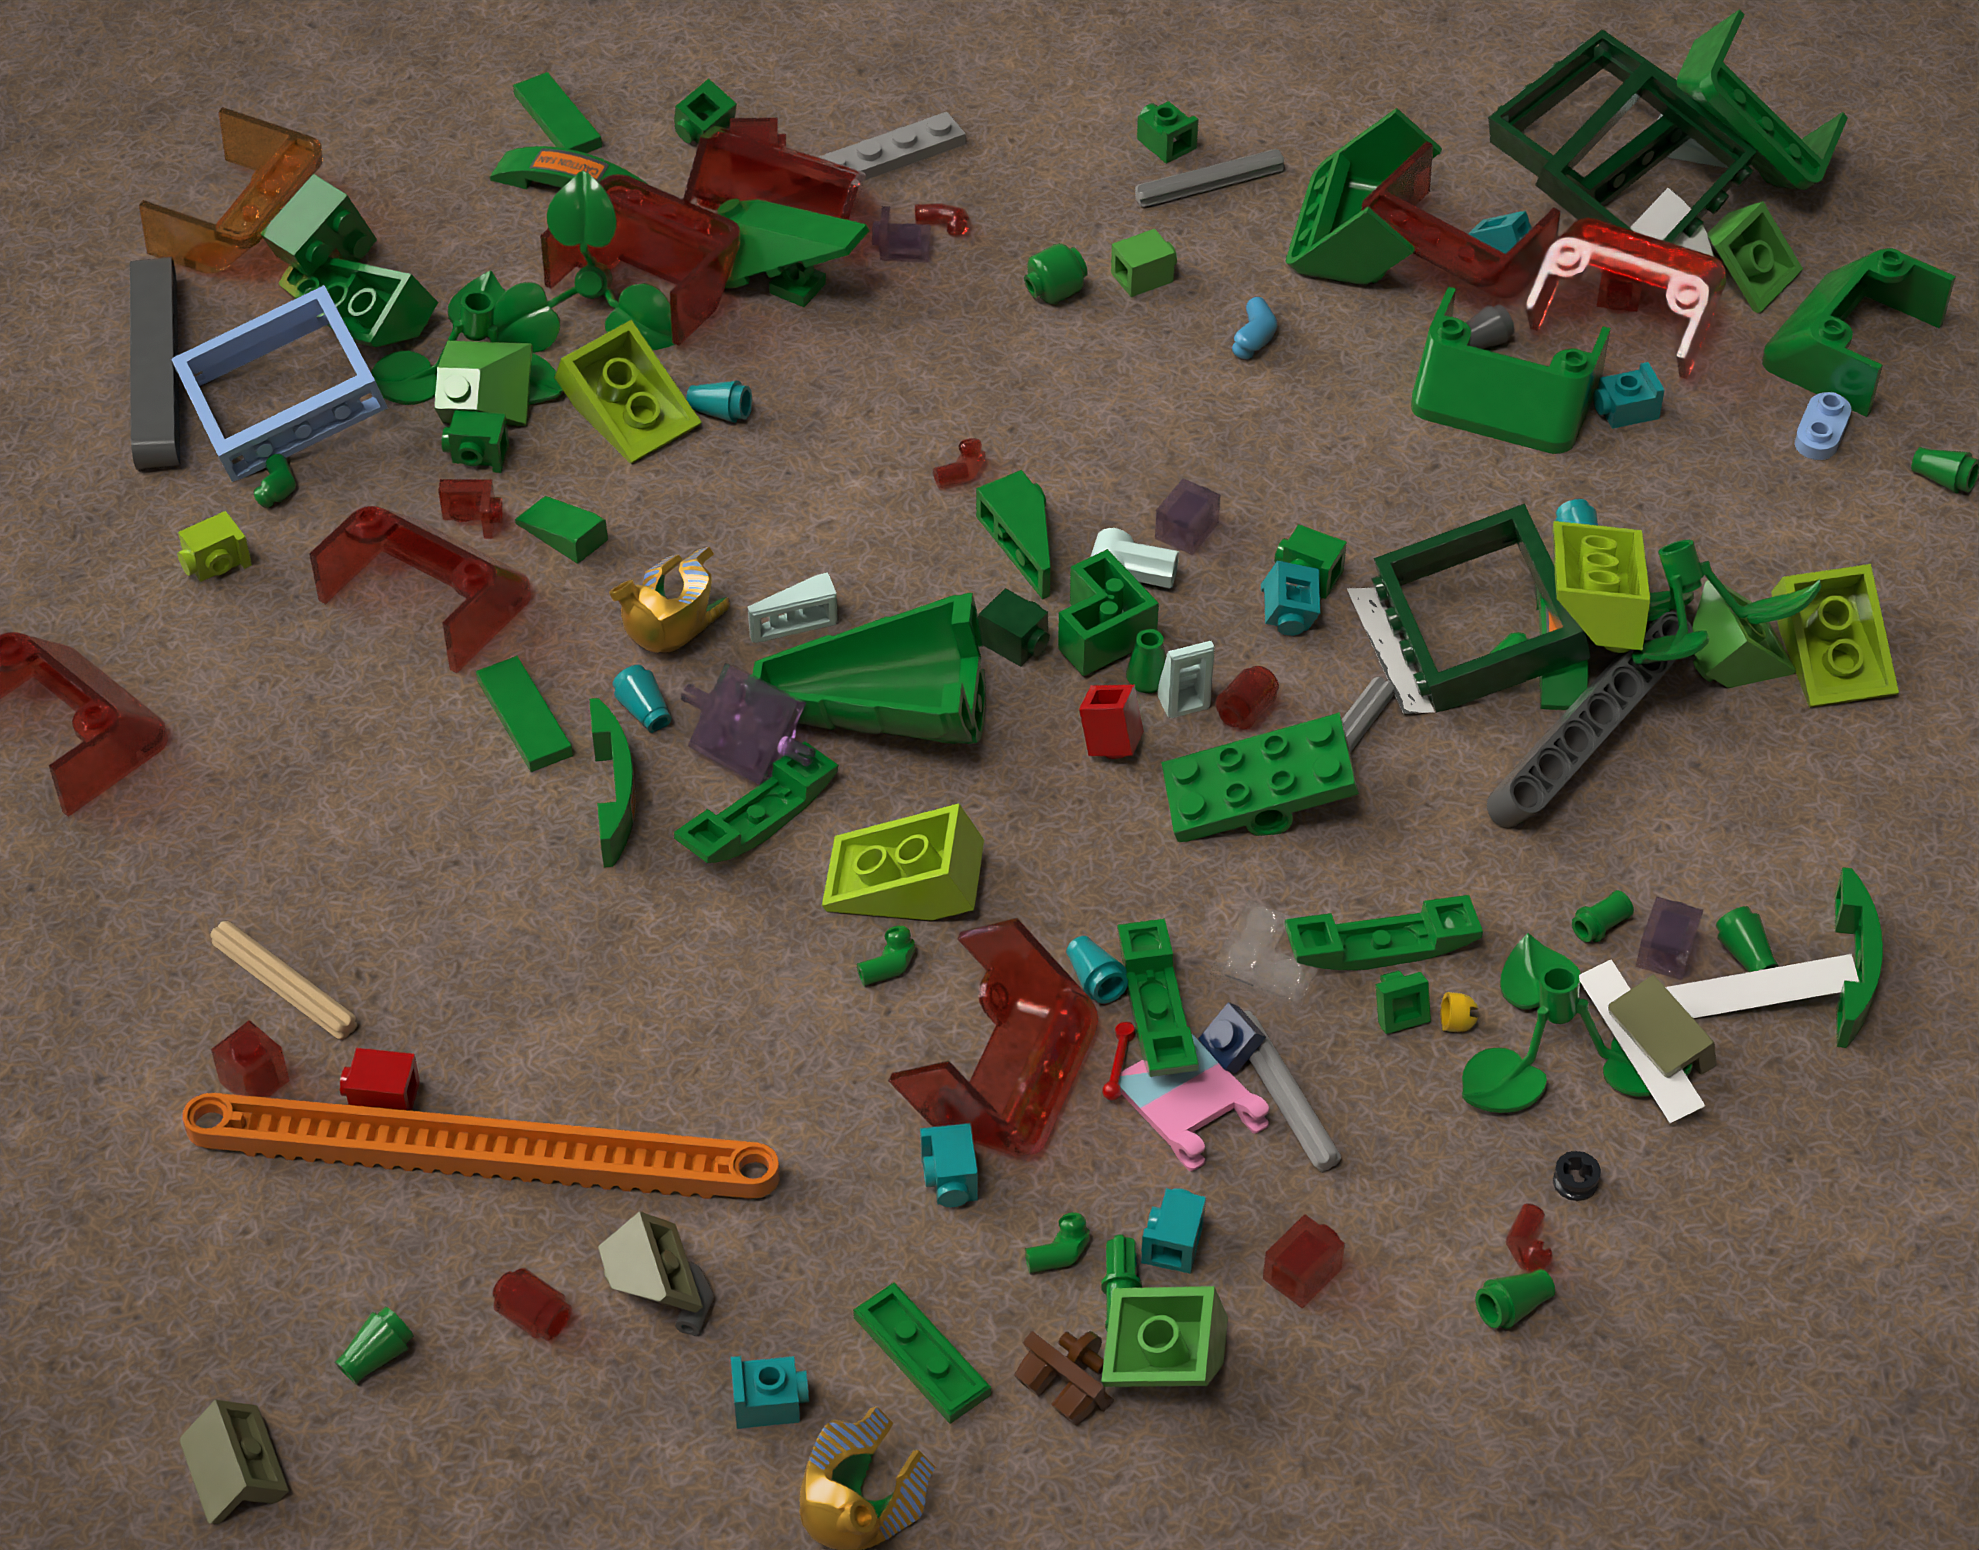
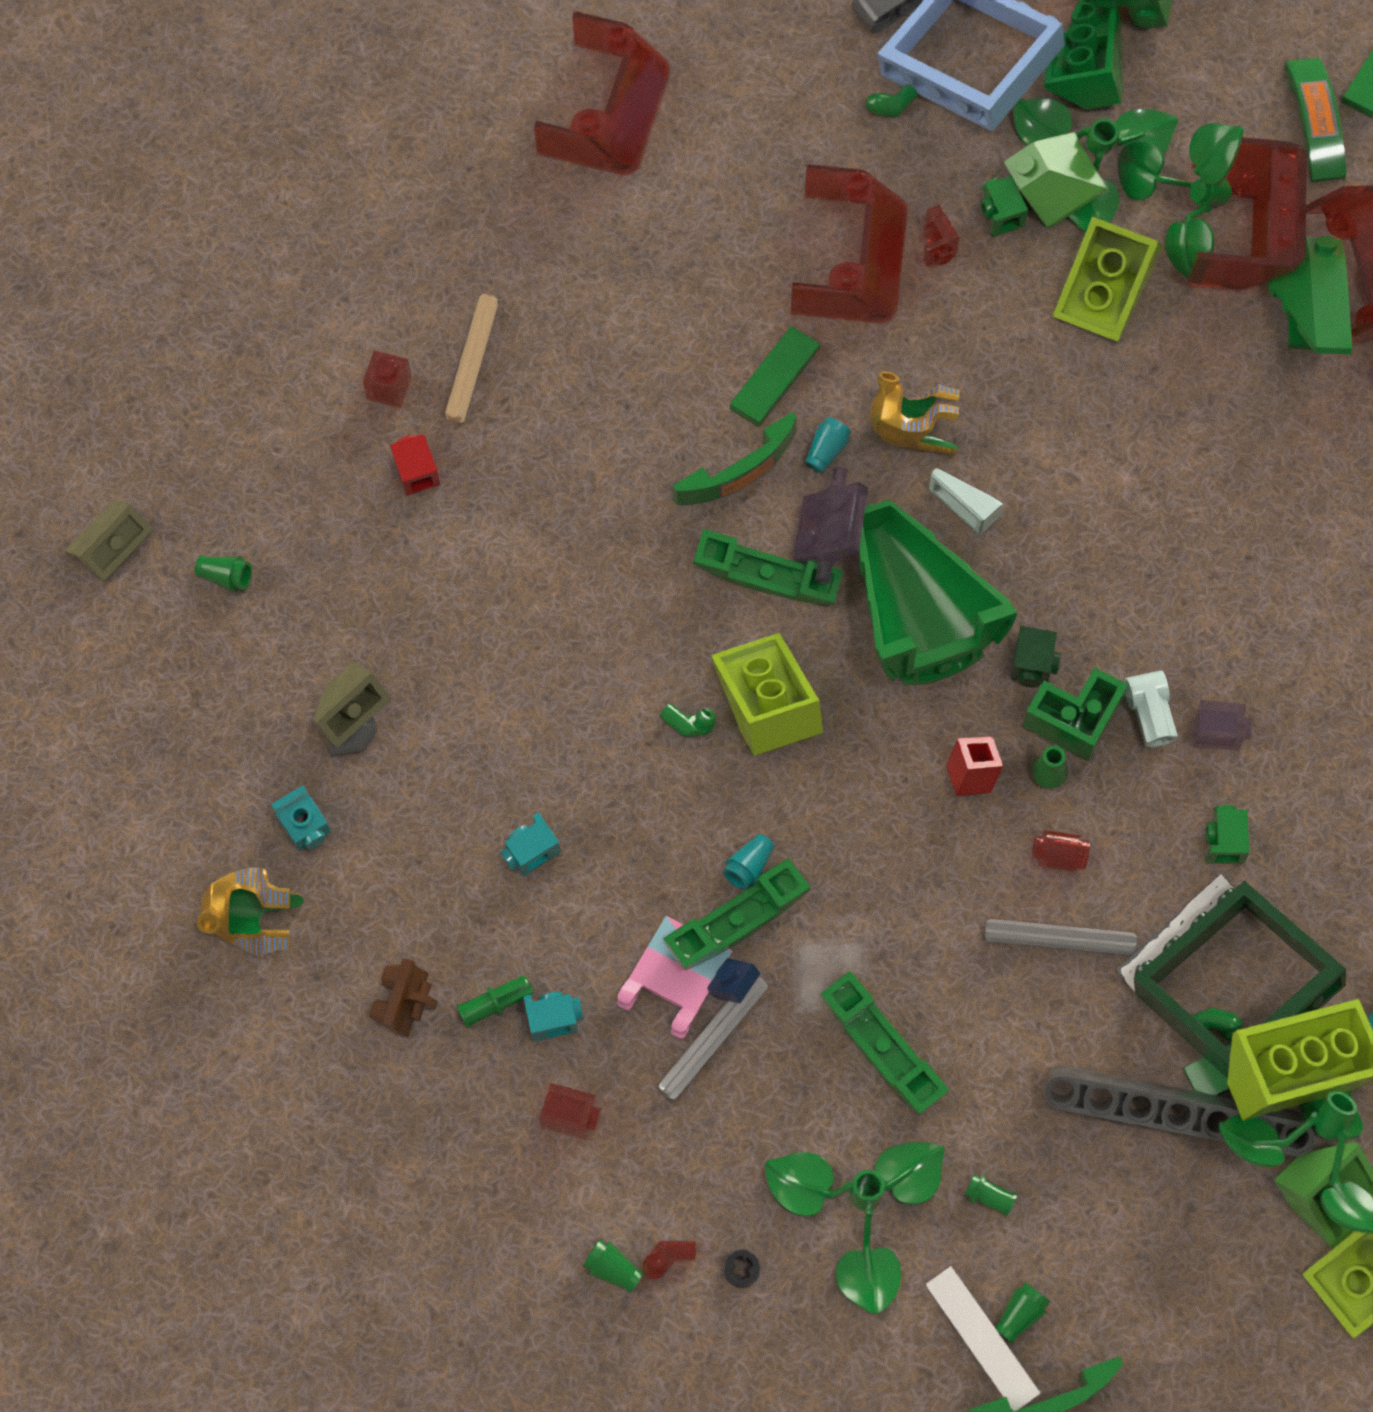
camera: 65 degrees right, 20 degrees up
(213, 547) = (802, 99): lime brick -> none
(481, 1146) = (402, 553): orange gear -> none
(531, 1304) = (296, 645): clear red brick -> none
(564, 527) = (959, 306): green slope -> none
(722, 400) = (1145, 343): teal cone -> none
(922, 1352) = (383, 899): green tile -> none
(964, 468) = (1183, 545): clear red arm -> none
(1016, 519) = (1141, 612): green slope -> none
(1031, 1055) = (637, 854): clear red windscreen -> none
(1065, 1247) = (507, 951): green arm -> none
(1124, 1032) = (651, 920): red hinge -> none
(1164, 1337) = (448, 1050): bright green slope -> none
(1187, 680) = (1041, 802): light aqua slope -> none
(1260, 780) = (978, 895): green plate -> none
(1288, 605) = (1190, 838): teal brick -> none
(1402, 1001) = (829, 1082): green tile -> none
(1456, 1012) = (844, 1128): yellow hinge -> none
(1663, 1028) = (898, 1279): olive panel -> none
(1669, 938) = (993, 1251): clear purple brick -> none
(1674, 1093) = (880, 1267): white sticker -> none

